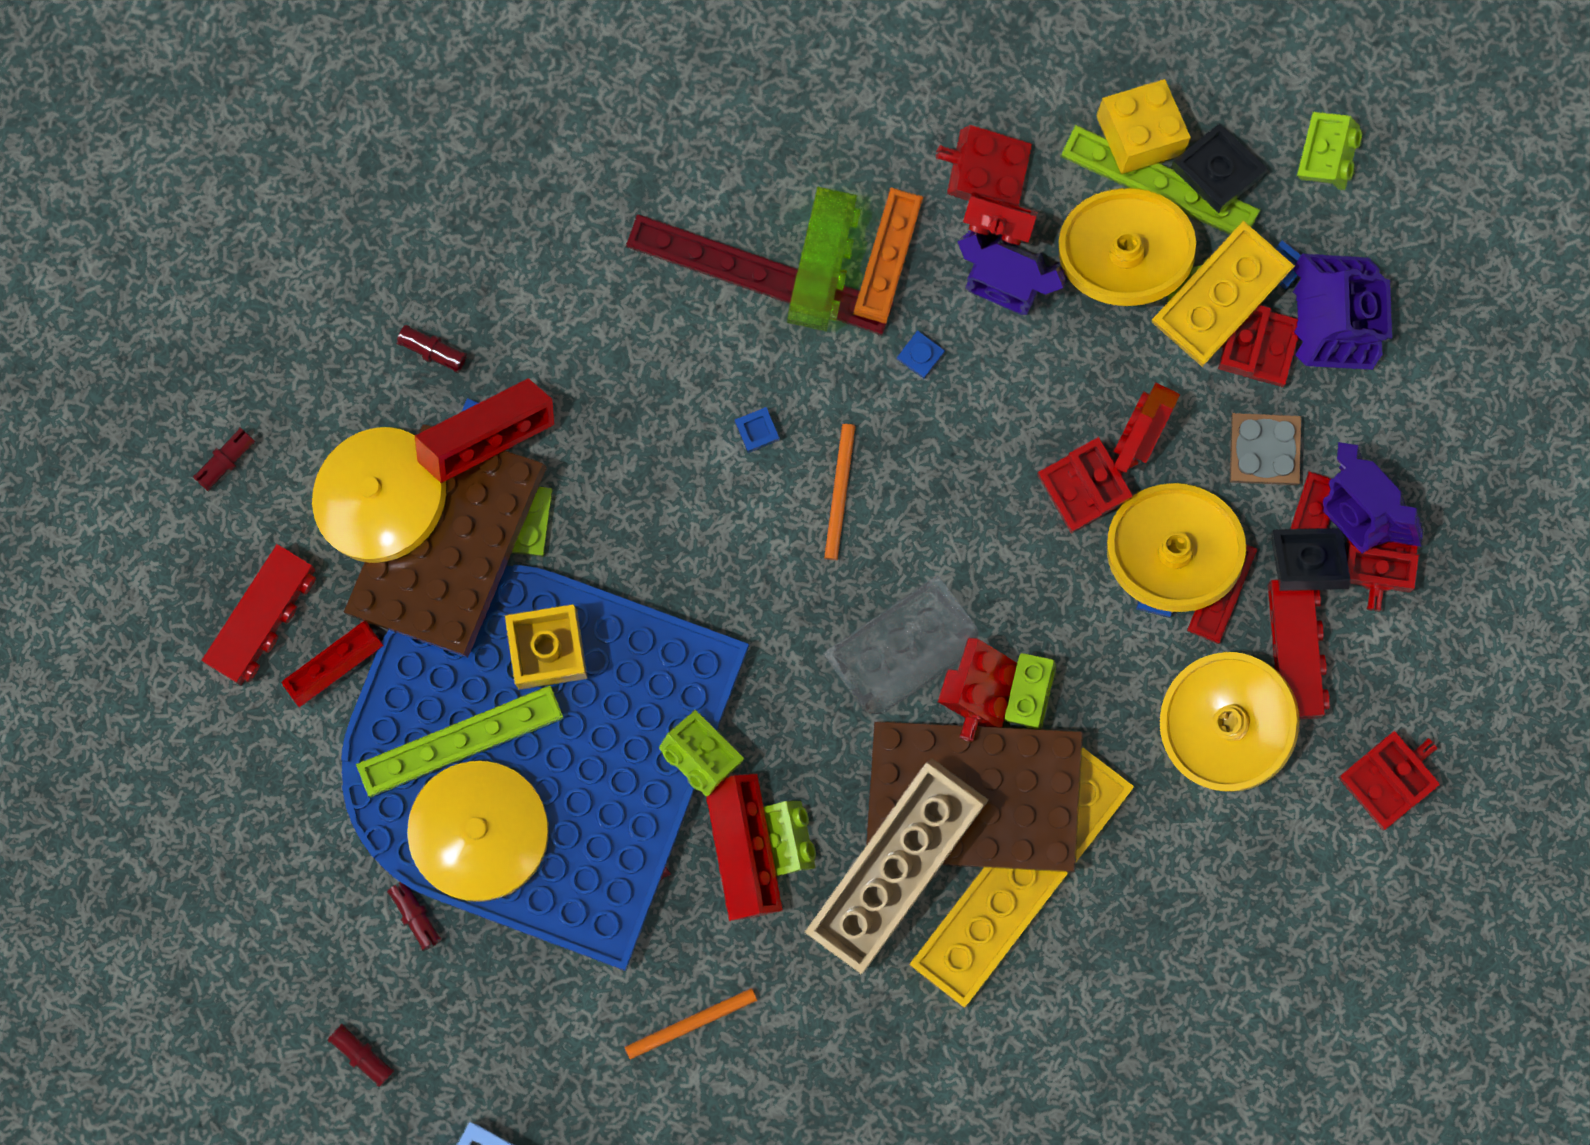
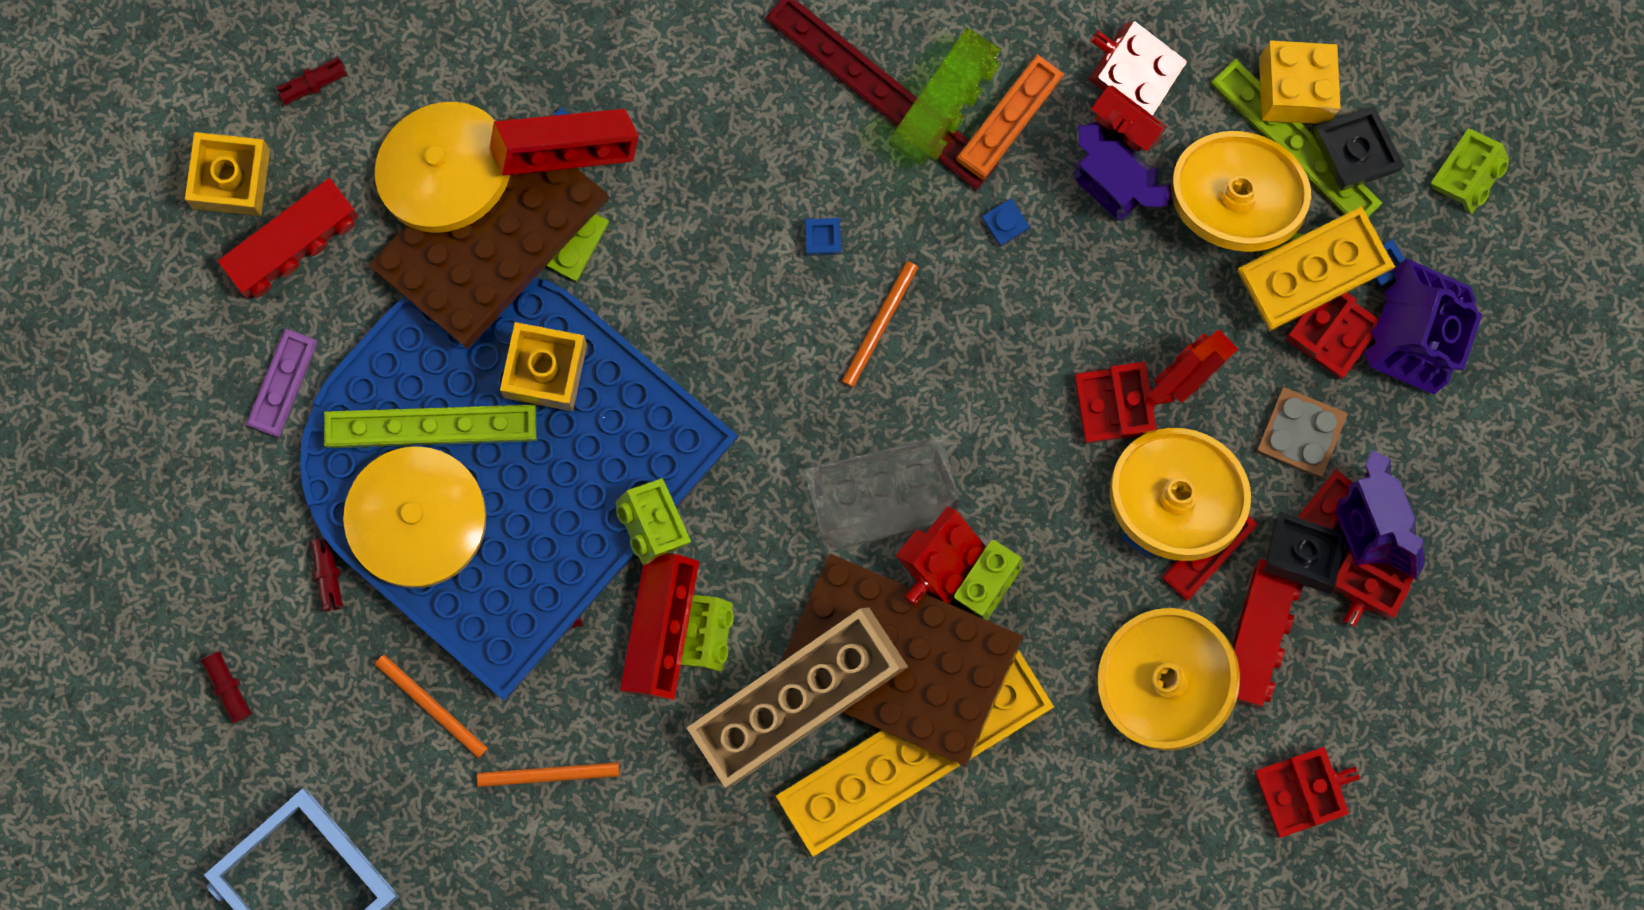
camera: 20 degrees right, 0 degrees up
(179, 575) = (227, 174): none -> yellow brick
(303, 753) = (282, 383): none -> medium lavender tile
(331, 663) = (339, 309): red tile -> none
(431, 348) = (545, 48): dark red pin -> none
(558, 1001) = (431, 706): none -> orange bar

